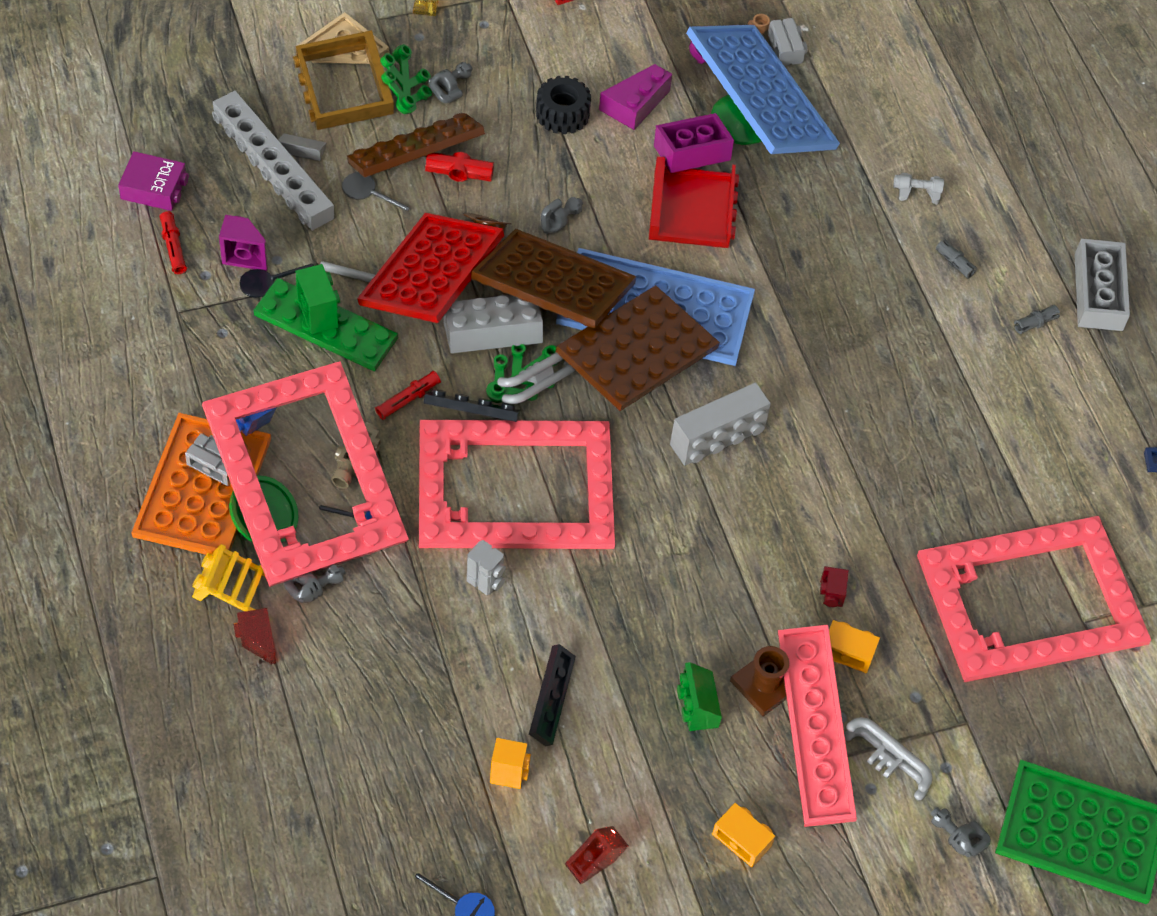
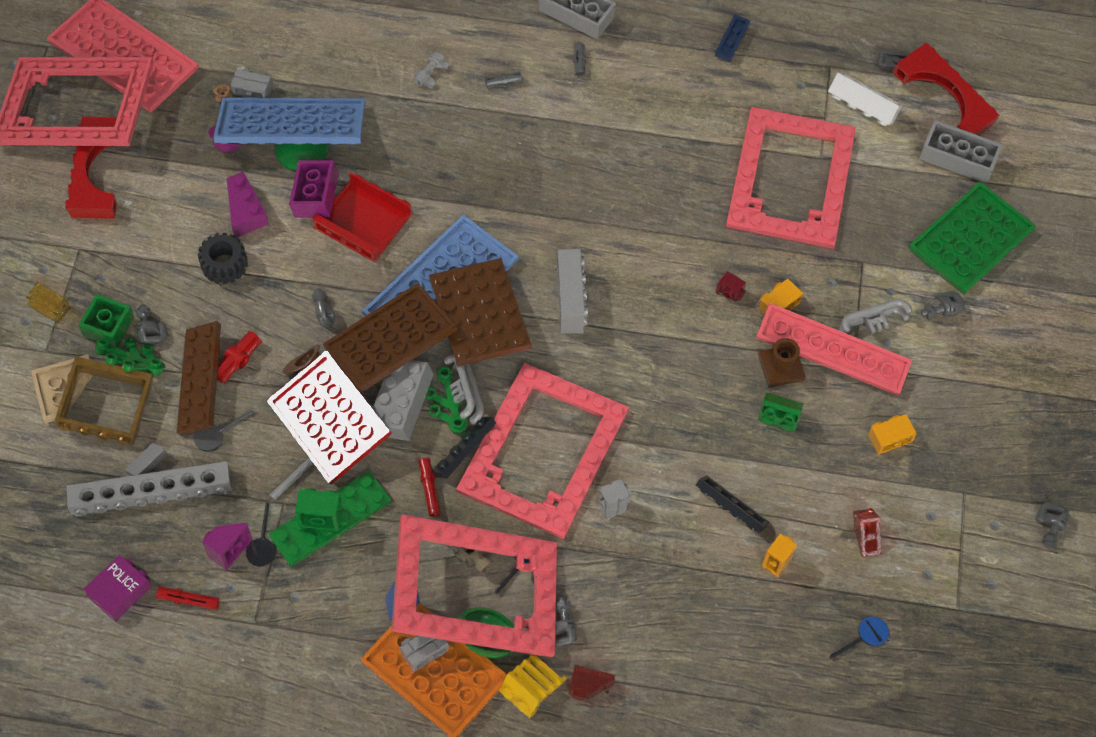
camera: 60 degrees left, 5 degrees up
(432, 43) = (106, 320): none -> green brick

